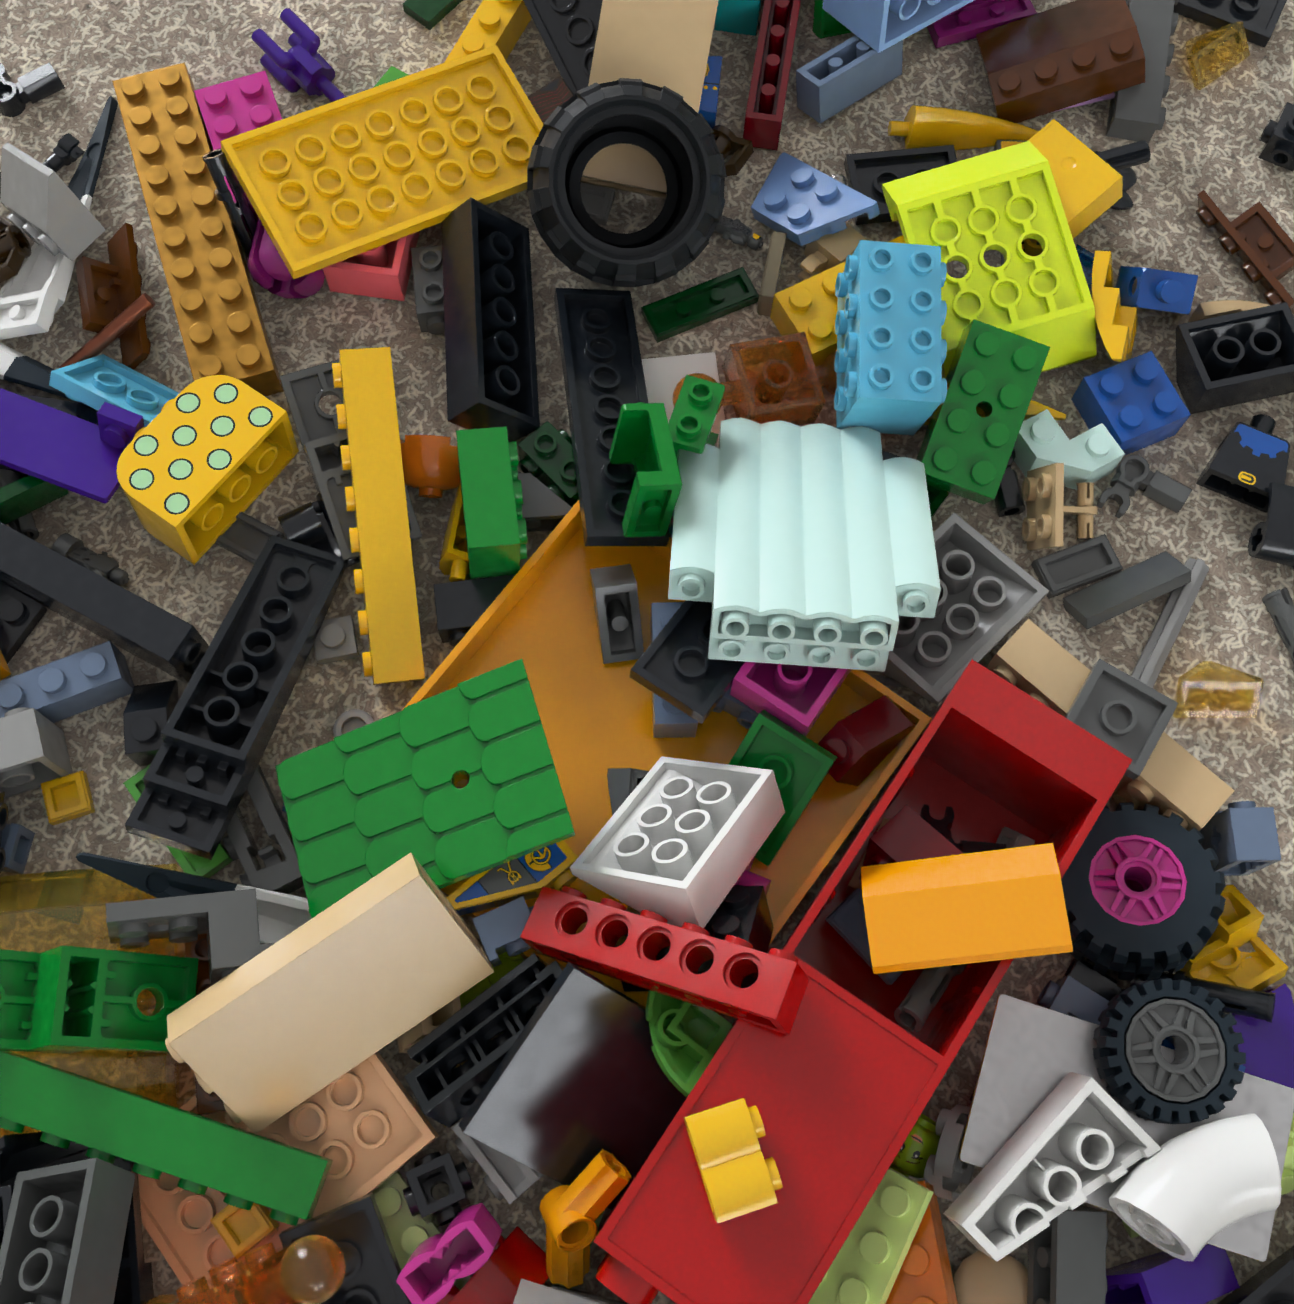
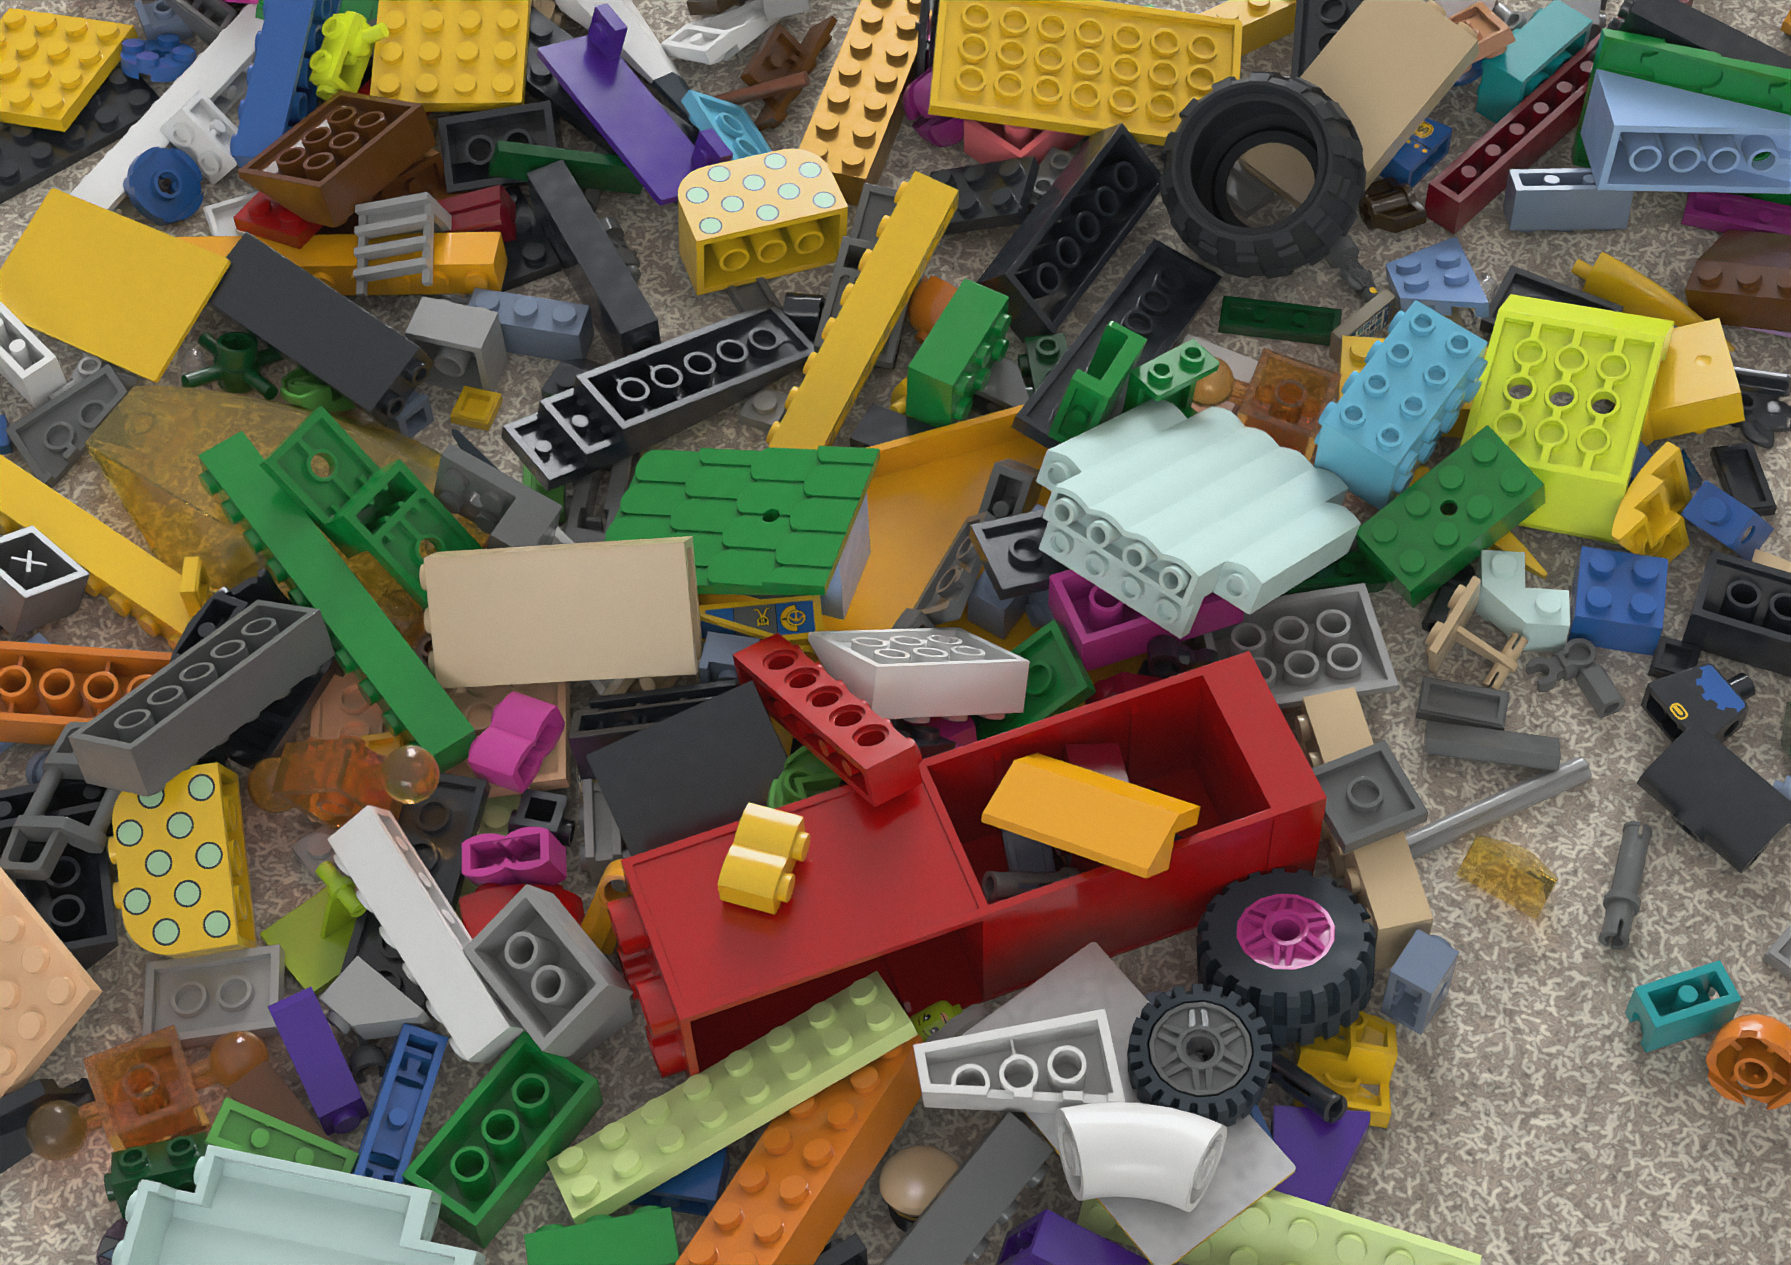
camera: 40 degrees right, 15 degrees down
(368, 1139) = (516, 741): none -> dark pink brick
(389, 316) = (990, 193): none -> black plate
(628, 710) = (954, 577): none -> dark grey wing
(865, 686) = (1170, 658): none -> black bar
(1132, 243) = (1743, 477): none -> black tile
(1198, 433) = (1673, 657): none -> black tile

